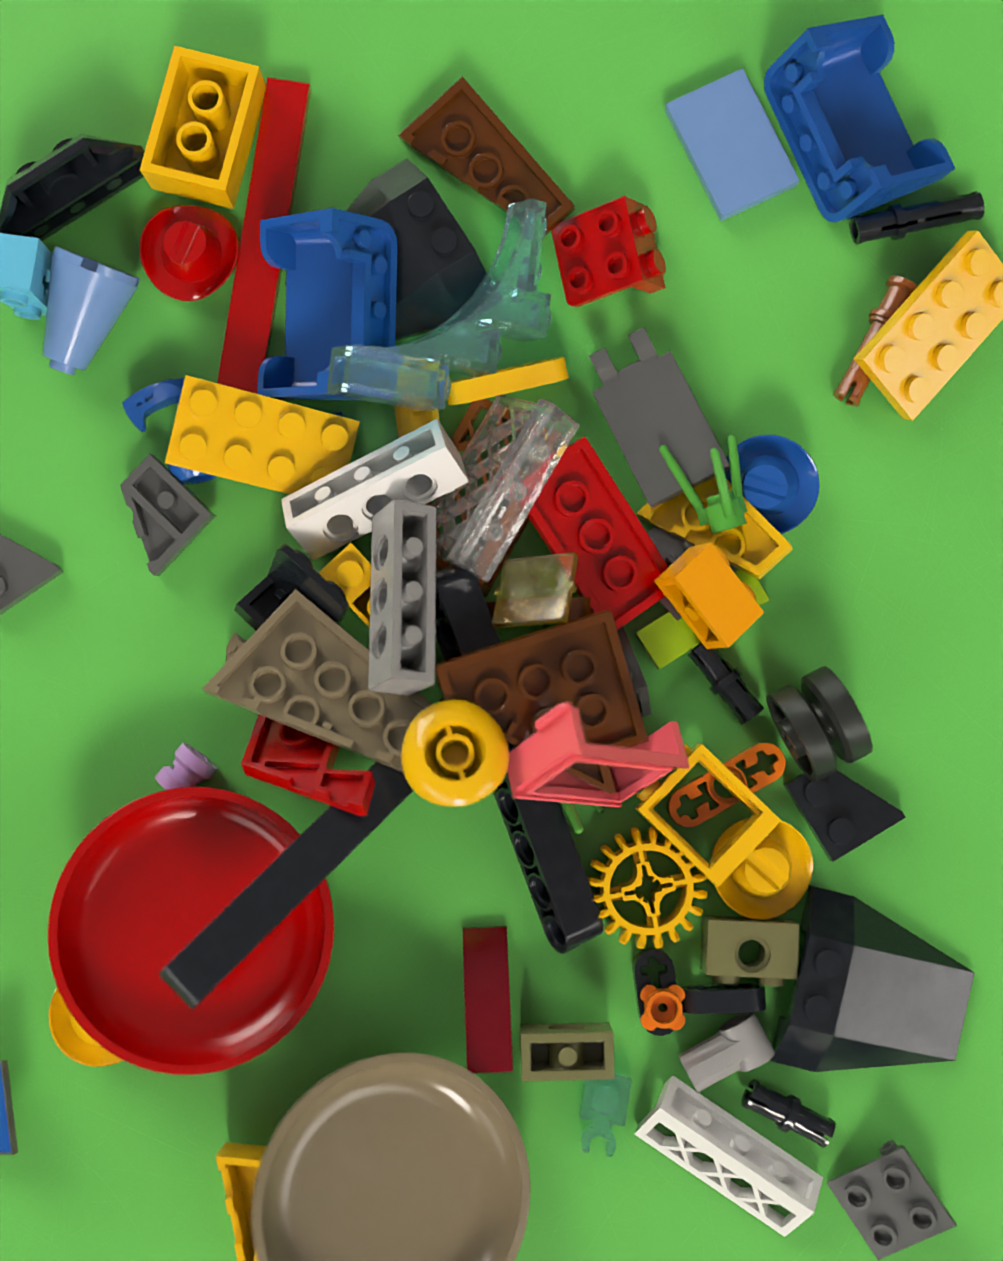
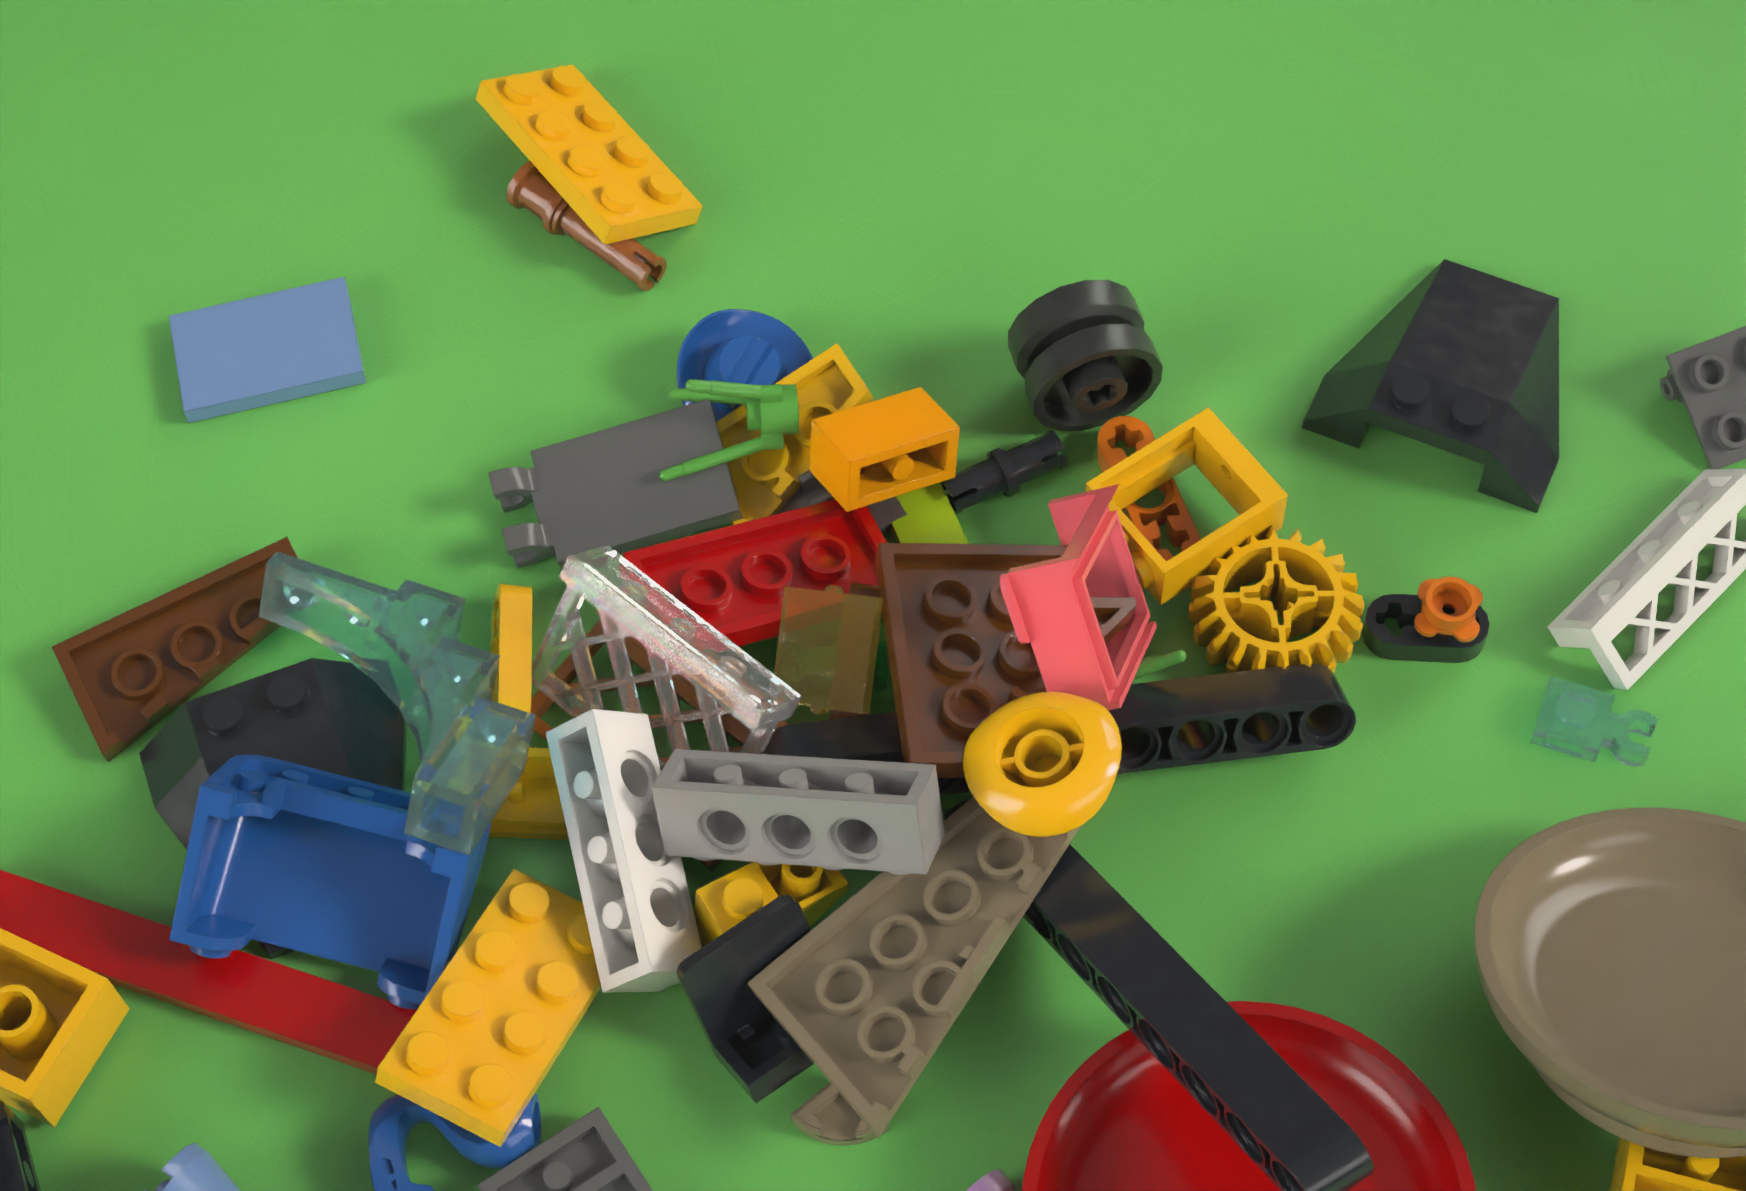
camera: 75 degrees left, 25 degrees down
(188, 251) = (176, 1081): red hat -> none
(305, 767) = (1017, 1006): red wing -> none
(487, 1000) = (1410, 840): dark red slope -> none
(567, 1051) = (1498, 740): olive brick -> none
(608, 252) = (368, 513): red bracket -> none
(724, 998) = (1445, 533): black beam -> none
(736, 1046) = (1516, 538): light grey piece -> none
(771, 875) = (1290, 454): yellow hat -> none
(777, 949) = (1385, 467): olive brick -> none
(788, 1113) = (1612, 493): black pin -> none
(841, 812) = (1210, 368): black wing -> none
(845, 121) = (287, 218): blue windscreen -> none
(903, 220) = (436, 176): black pin -> none

